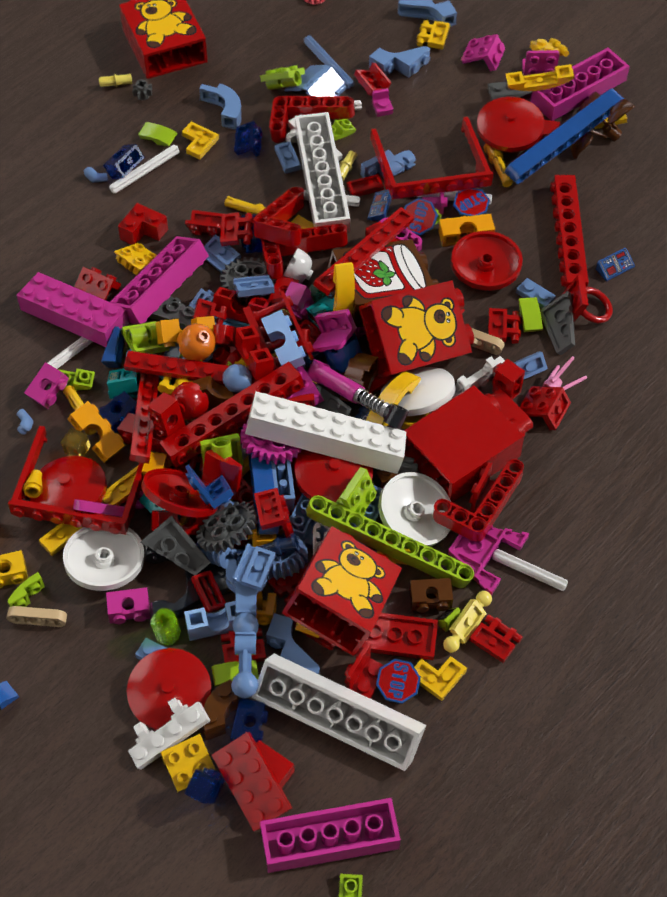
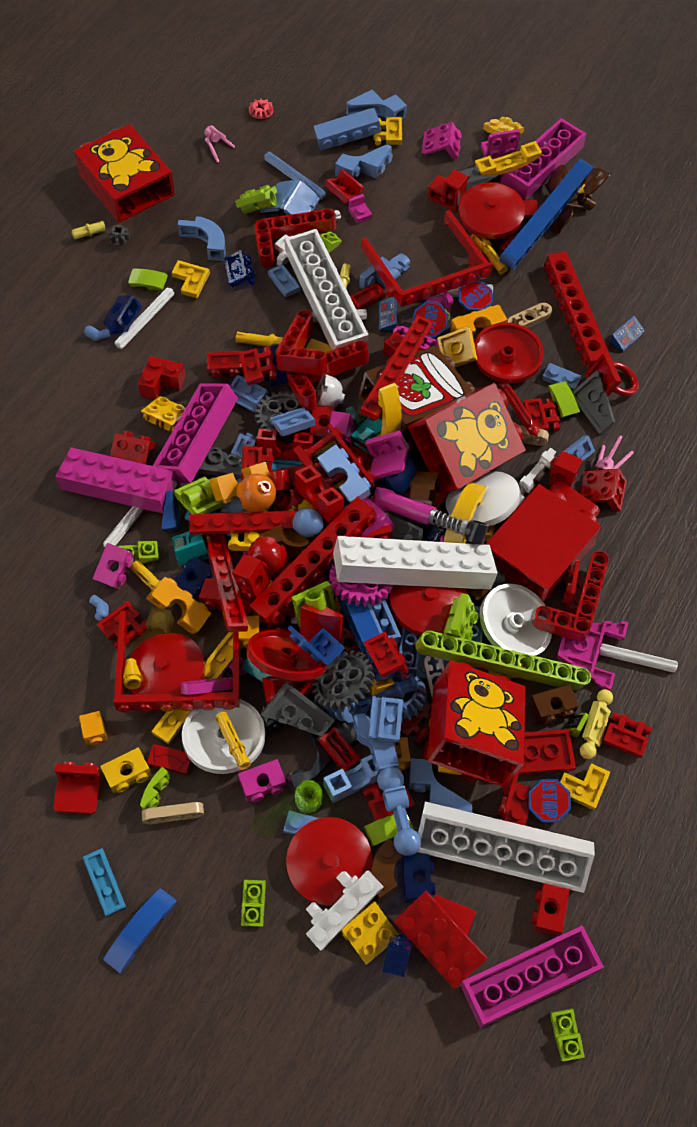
camera: 15 degrees left, 5 degrees up
(27, 437) = (110, 624): none -> red plate
(48, 569) = (169, 759): none -> red tile
(88, 712) = (253, 903): none -> lime slope
(109, 566) = (236, 747): none -> yellow pin
(260, 12) = (214, 135): none -> bright pink plant
(376, 770) = (557, 898): none -> red brick
(391, 25) = (347, 129): none -> medium blue brick
(438, 246) = (458, 346): none -> yellow plate
(473, 97) = (448, 190): none -> red brick
(481, 314) = (519, 409): none -> red wheel
(529, 229) = (535, 312): none -> tan beam

